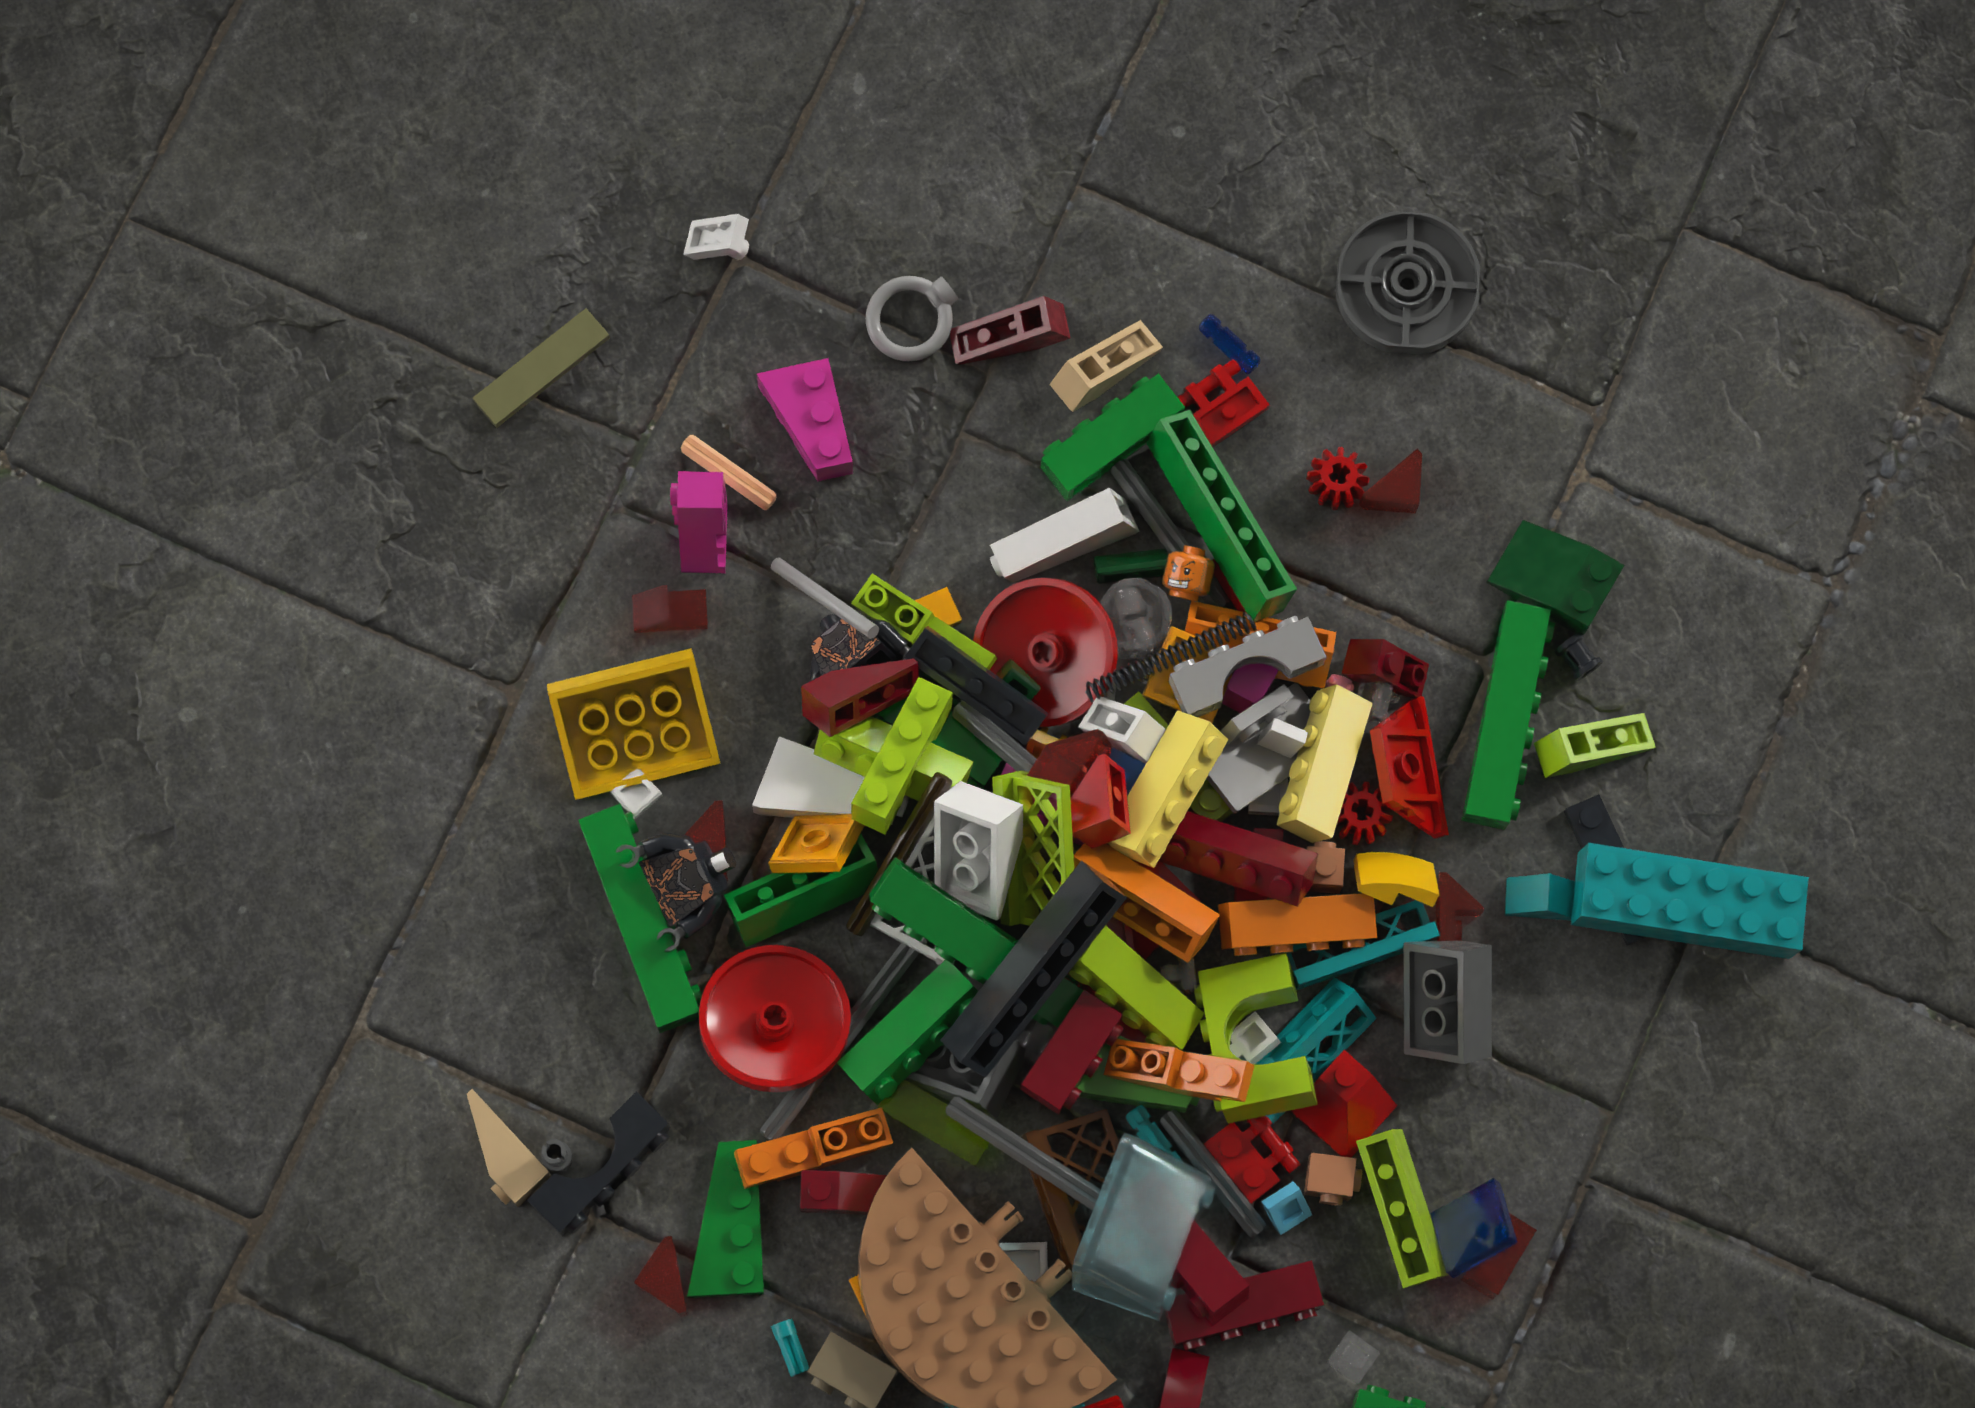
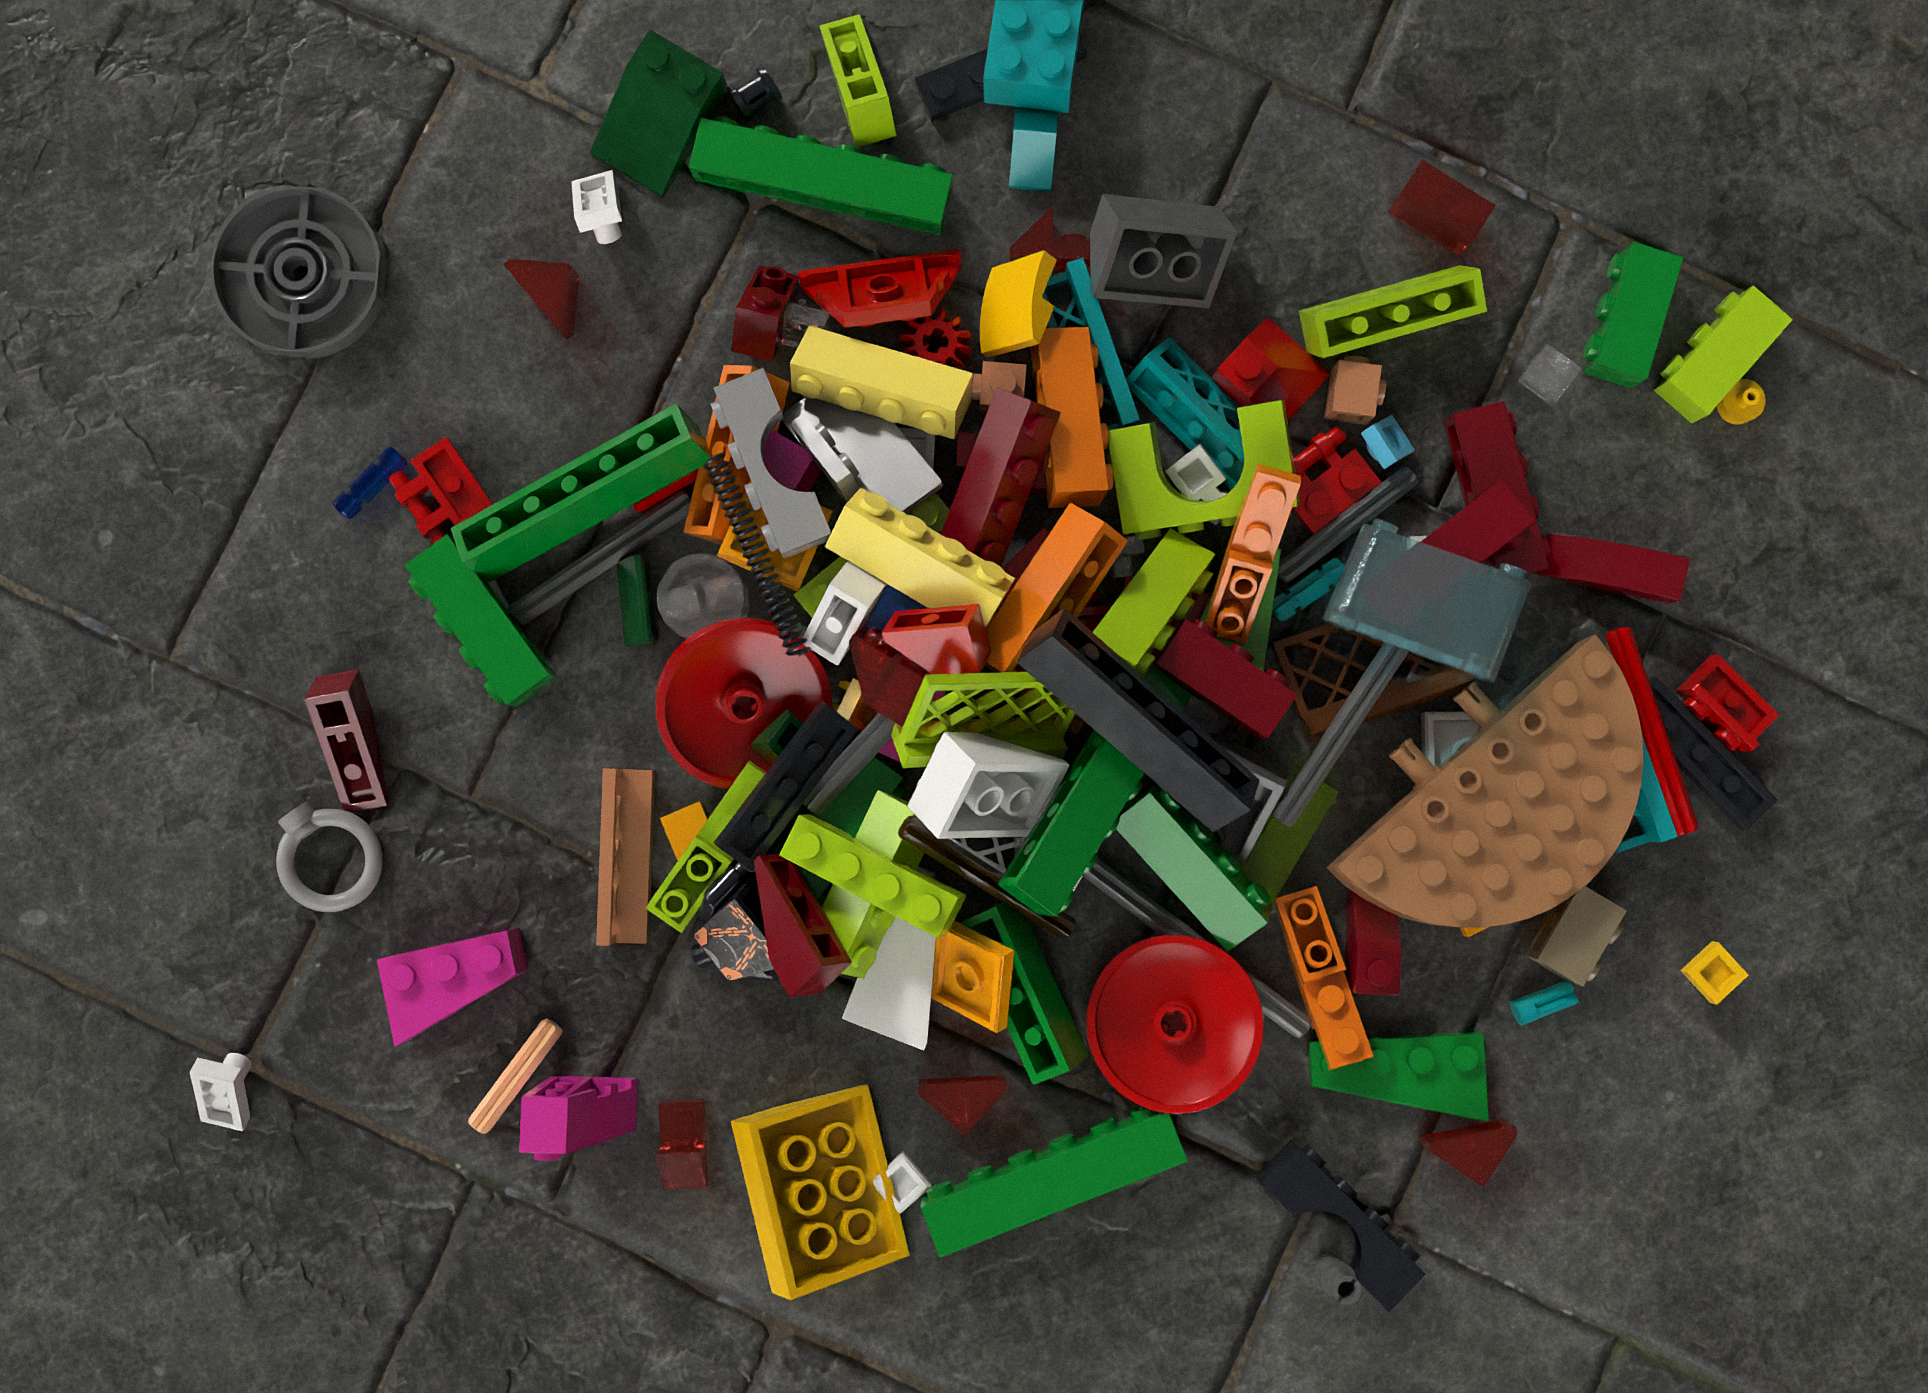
camera: 90 degrees left, 10 degrees up
(507, 1159) = (1323, 1339): tan slope -> none
(541, 368) = (381, 1302): olive tile -> none
(683, 879) = (1013, 1133): torso -> none
(825, 598) = (675, 963): light grey bar -> none
(915, 558) = (625, 856): none -> nougat fence
(1064, 536) = (602, 681): white slope -> none
(1104, 365) = (393, 629): tan slope -> none
(1188, 573) = (651, 533): orange head -> none
(1282, 738) = (852, 427): white tile -> none
(1341, 681) = (781, 365): bright pink piece -> none
(1343, 466) = (521, 355): red gear -> none
(1473, 525) = (598, 206): none -> white tile
(1473, 1228) = (1419, 230): clear blue tile -> none

